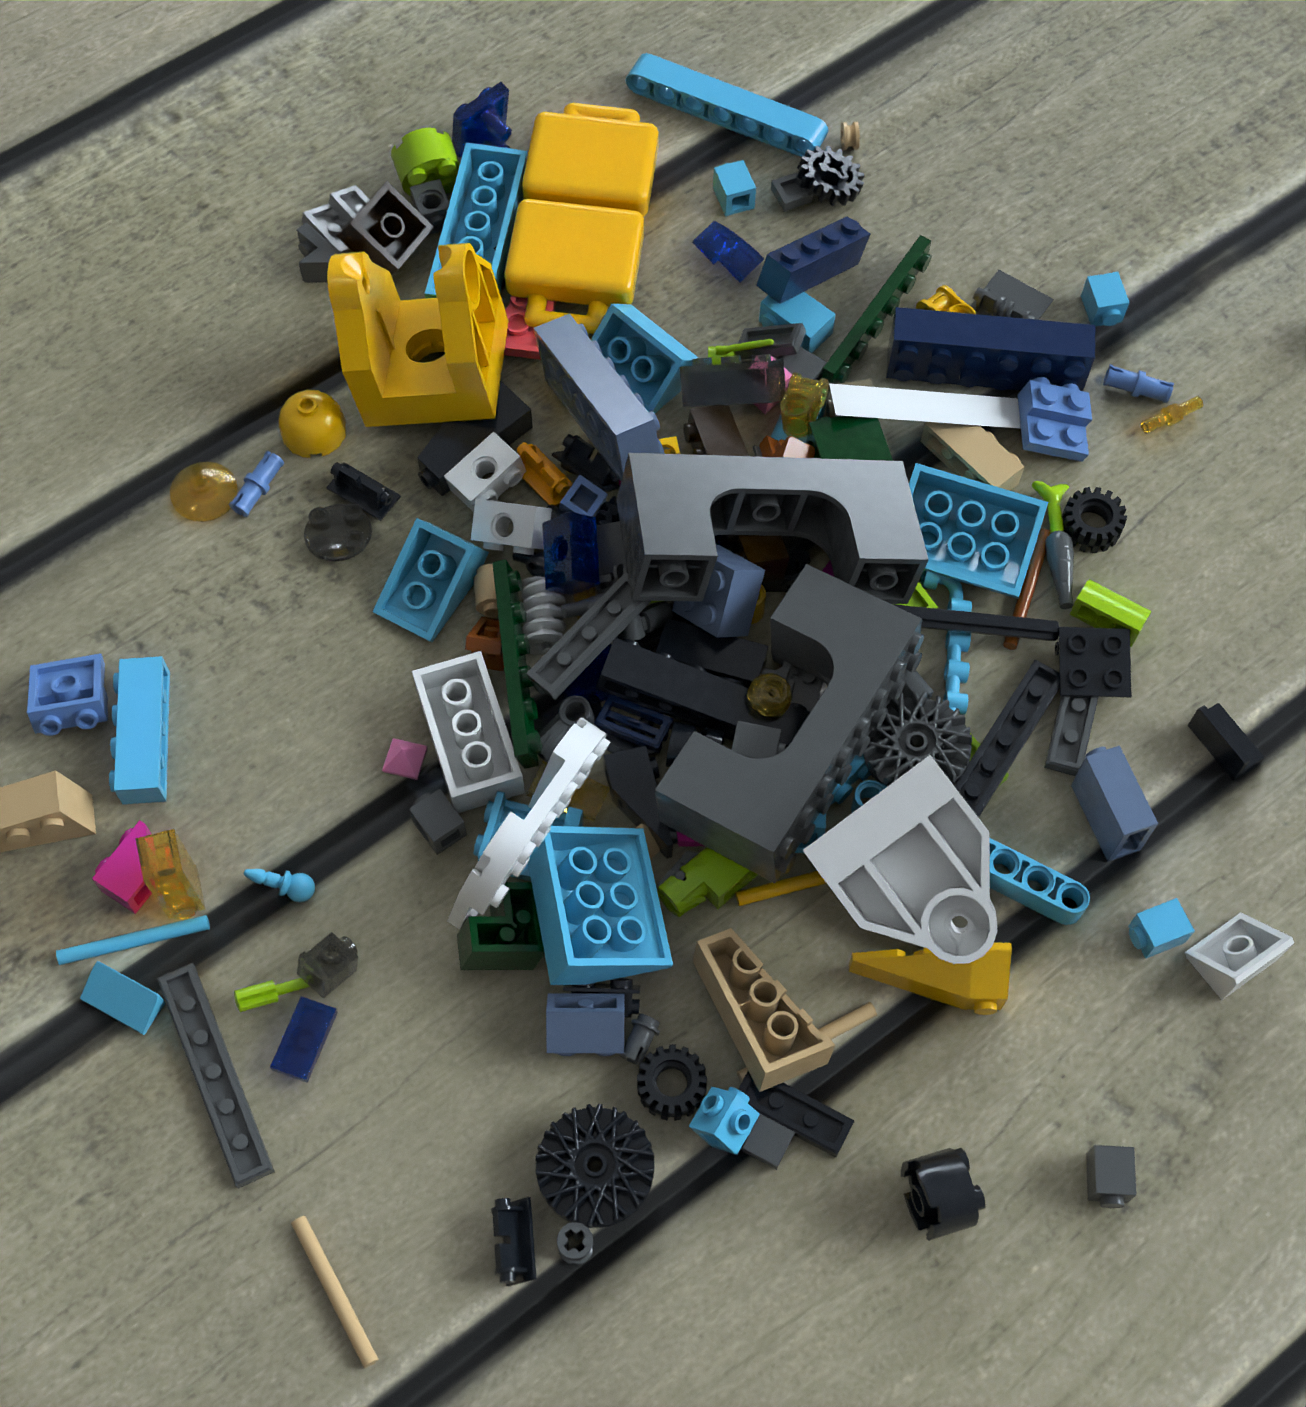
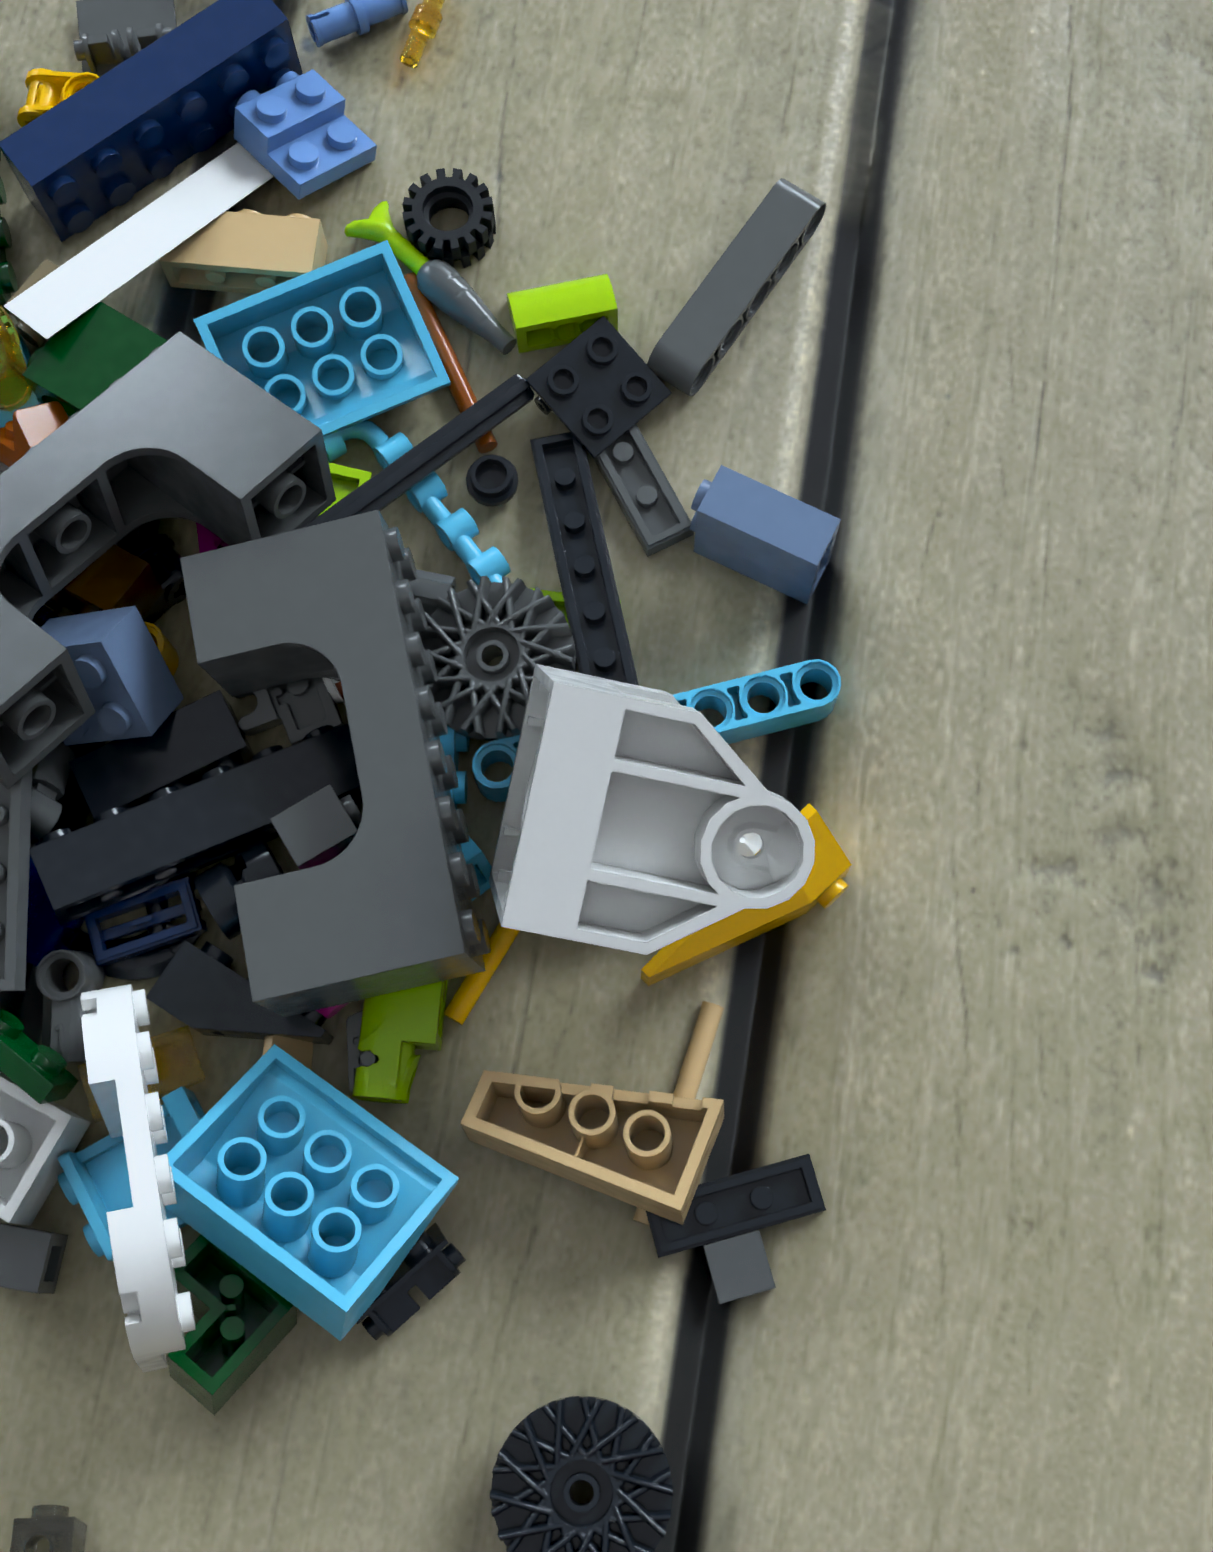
camera: 40 degrees left, 10 degrees up
(585, 1023) = (417, 1336): sand blue brick -> none
(640, 1038) = (494, 1289): dark grey pin -> none
(671, 1105) = (539, 1315): black tyre -> none
(724, 1119) = (673, 1293): medium azure brick -> none
(762, 701) = (273, 766): clear yellow plate -> none
(942, 1193) = (978, 1150): black brick -> none
(997, 663) = (492, 480): none -> black plate
(1111, 1175) = (1122, 957): dark grey brick -> none
(1160, 928) = (931, 632): medium azure brick -> none
(1217, 673) = (736, 287): none -> dark grey beam
(1225, 740) = (810, 356): black panel -> none
(1237, 953) = (1031, 587): white slope -> none

